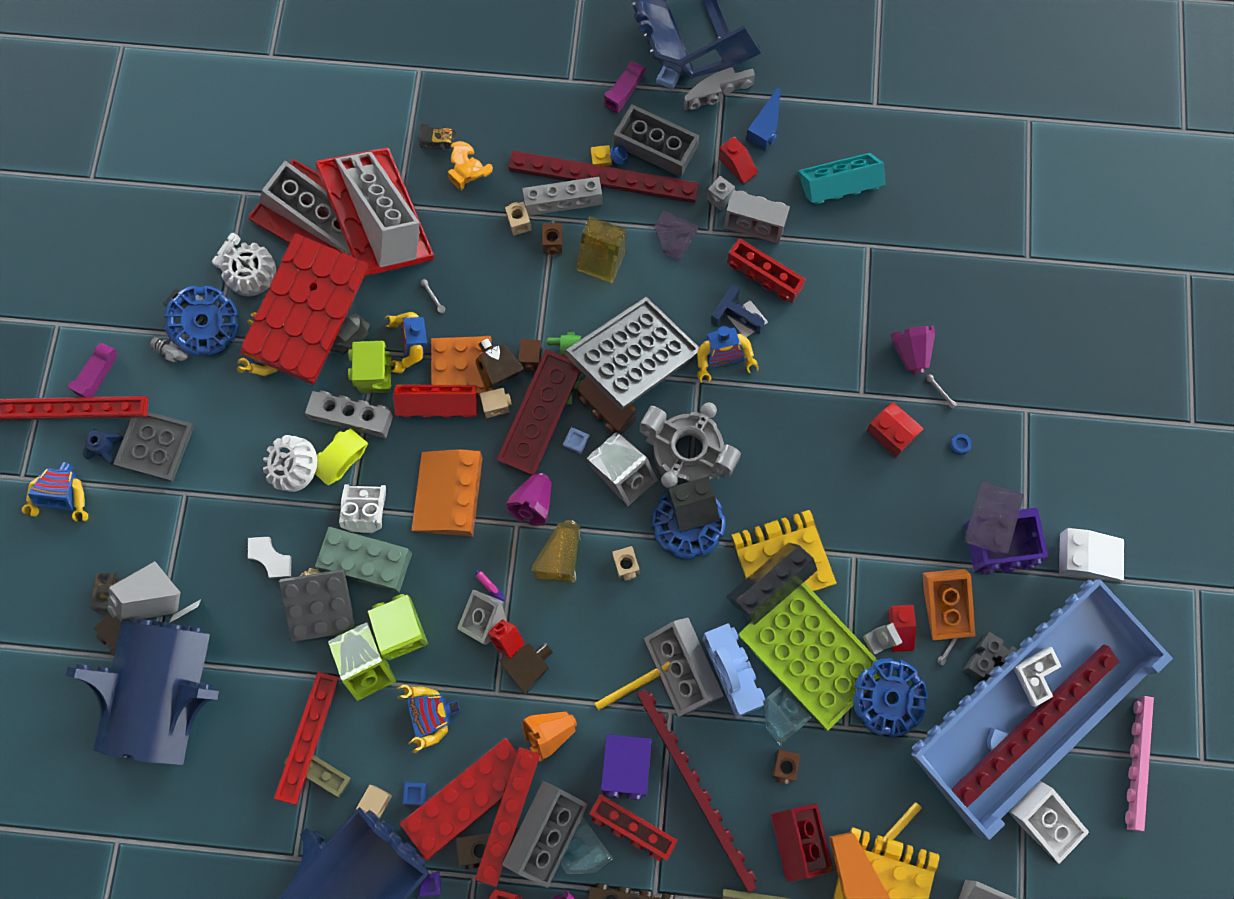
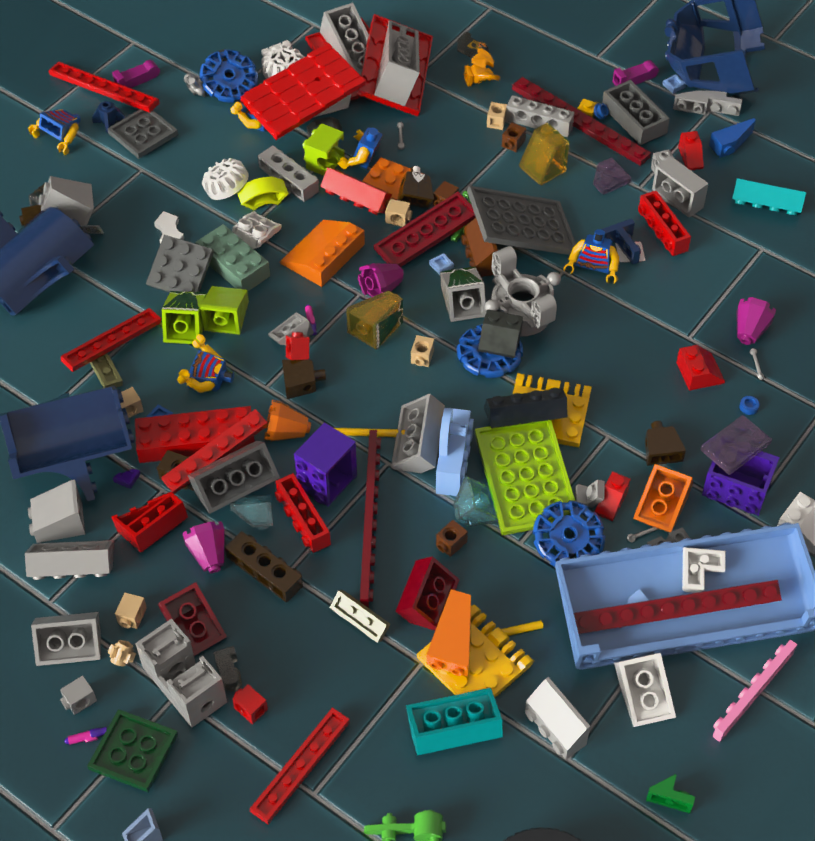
camera: 30 degrees right, 20 degrees down
(912, 540) = (663, 445): none -> dark brown torso

